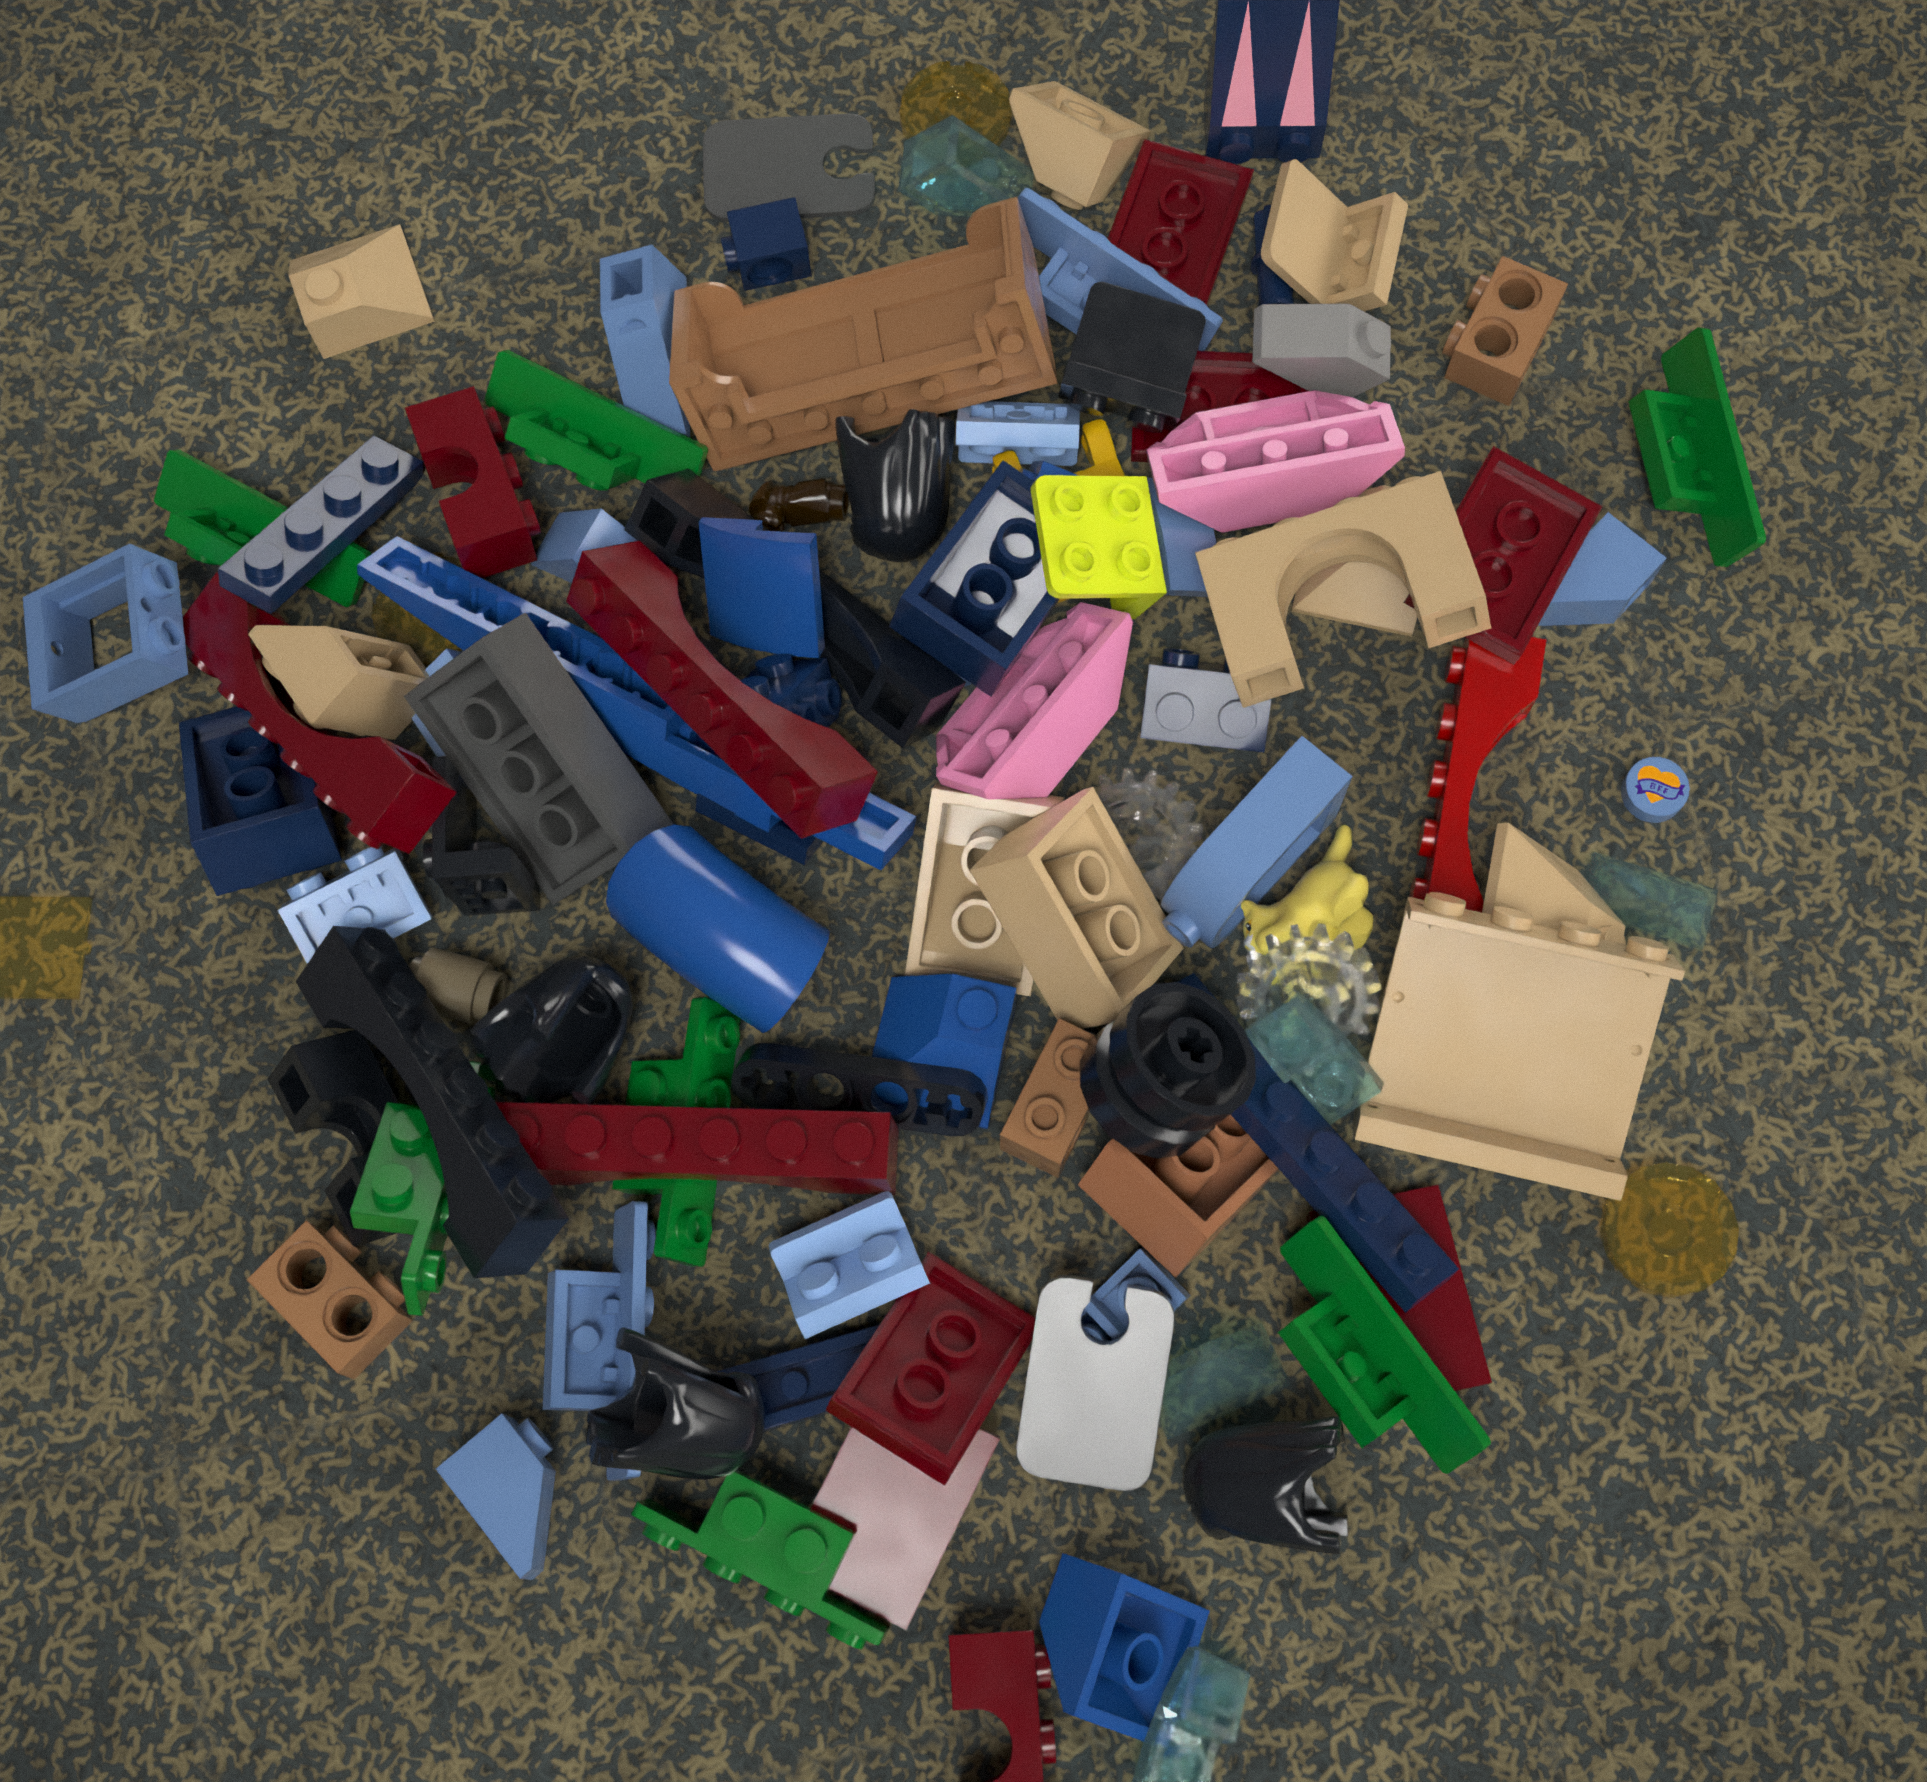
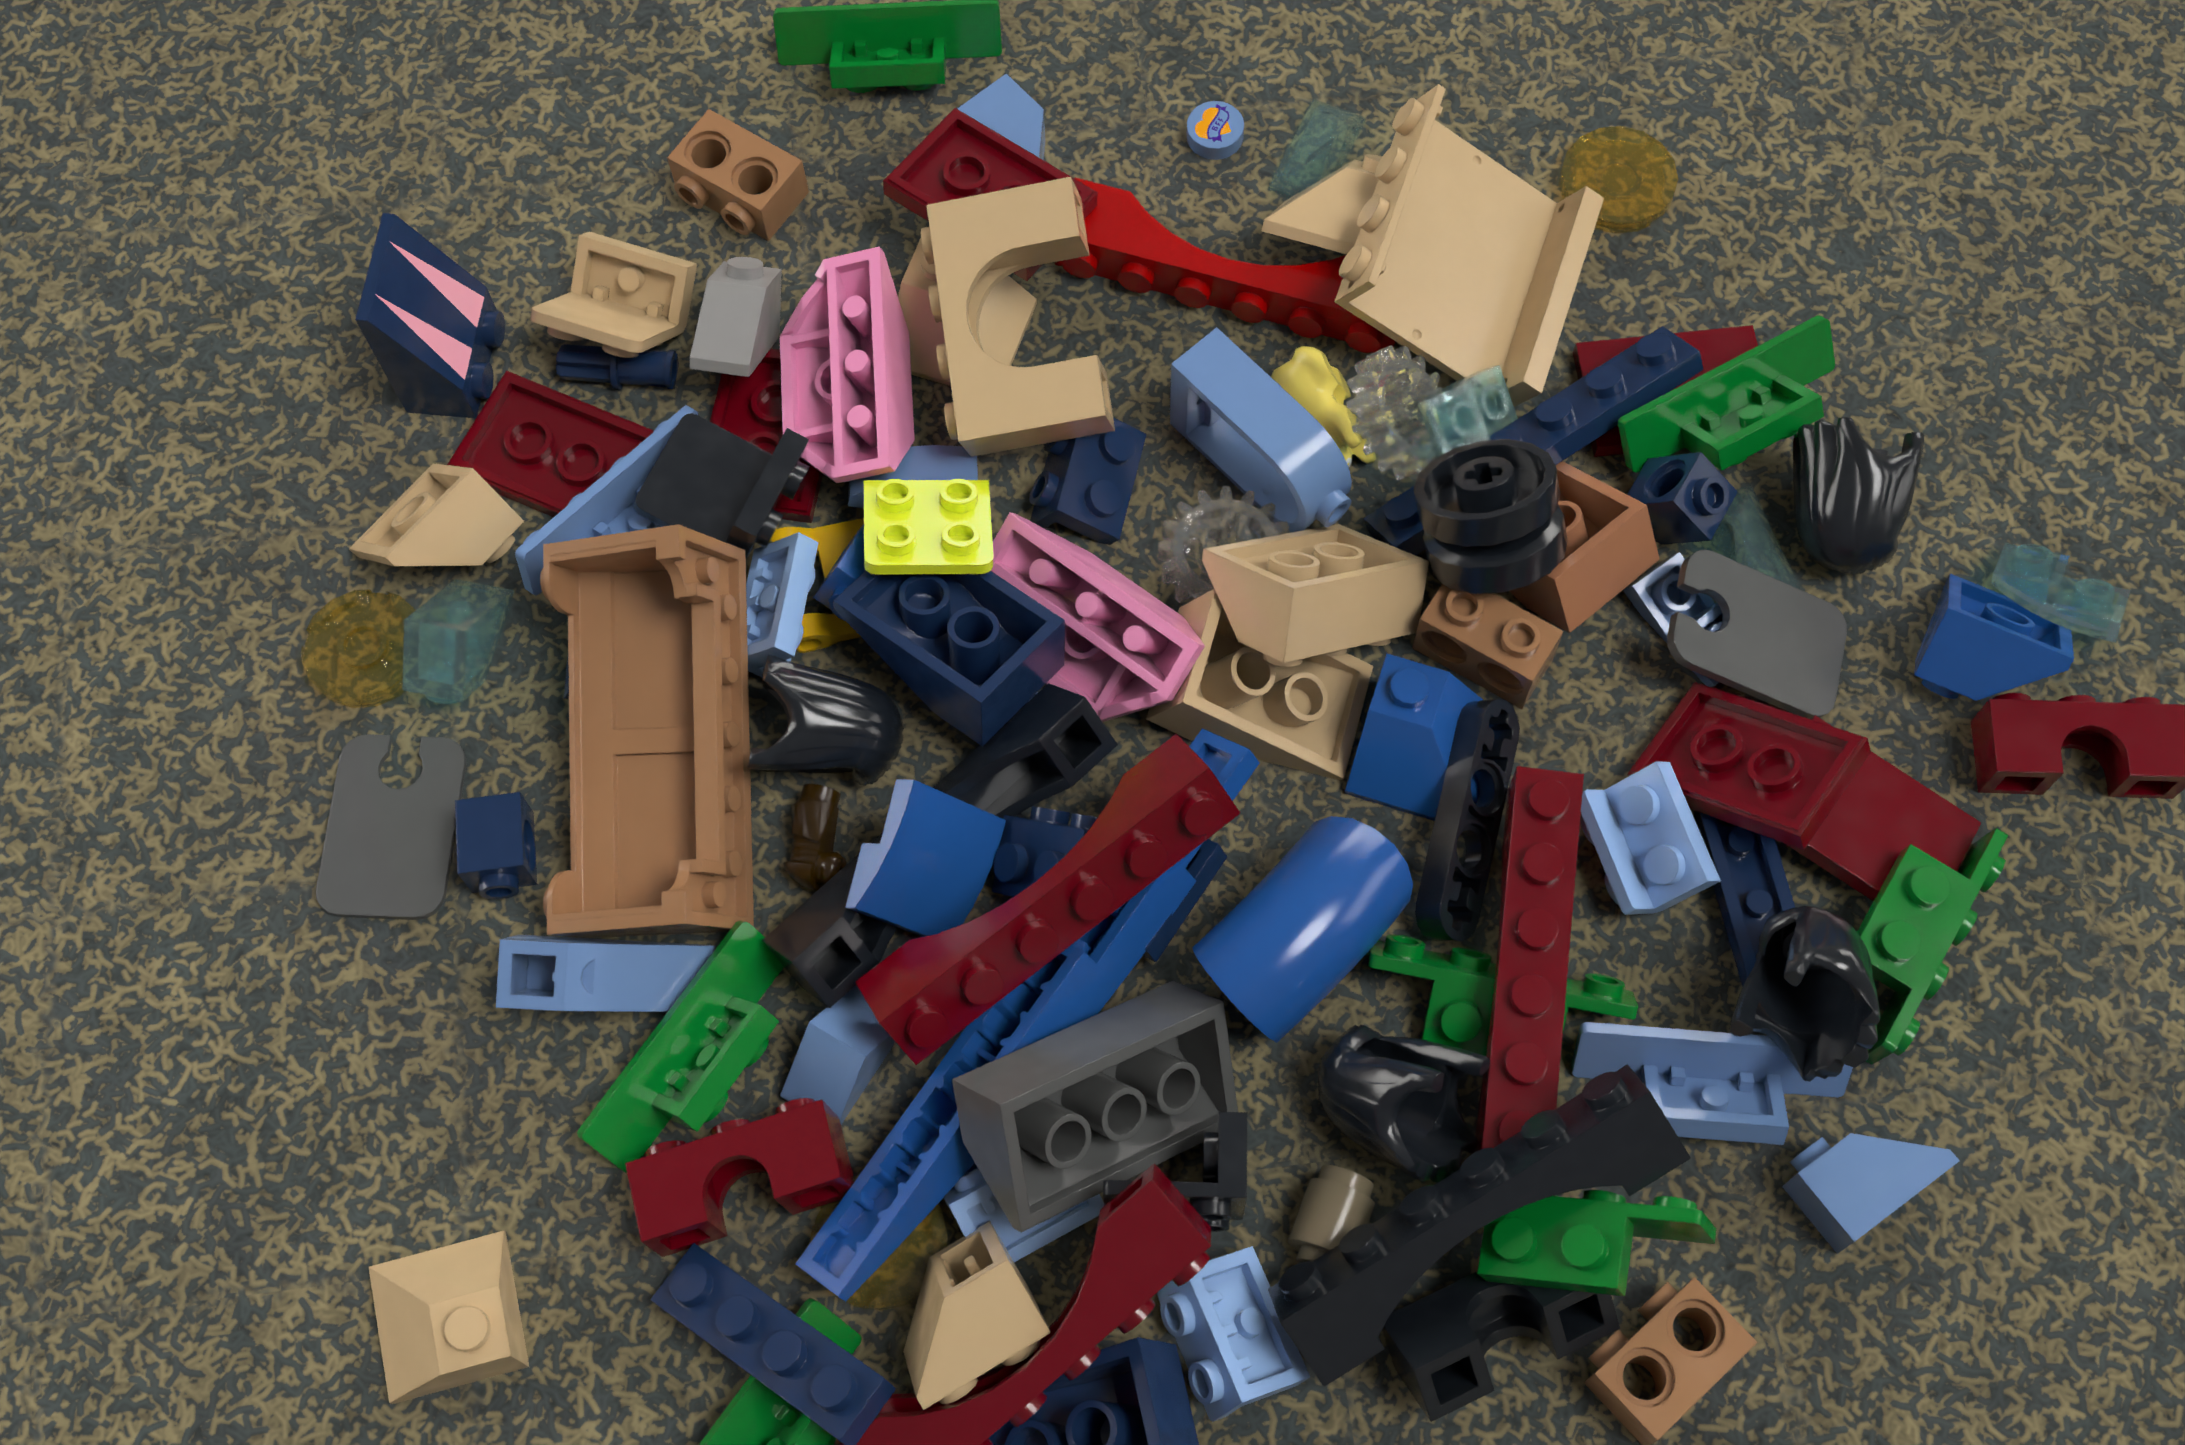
camera: 85 degrees left, 5 degrees down
(1244, 1293) = (1683, 497): none -> dark blue brick

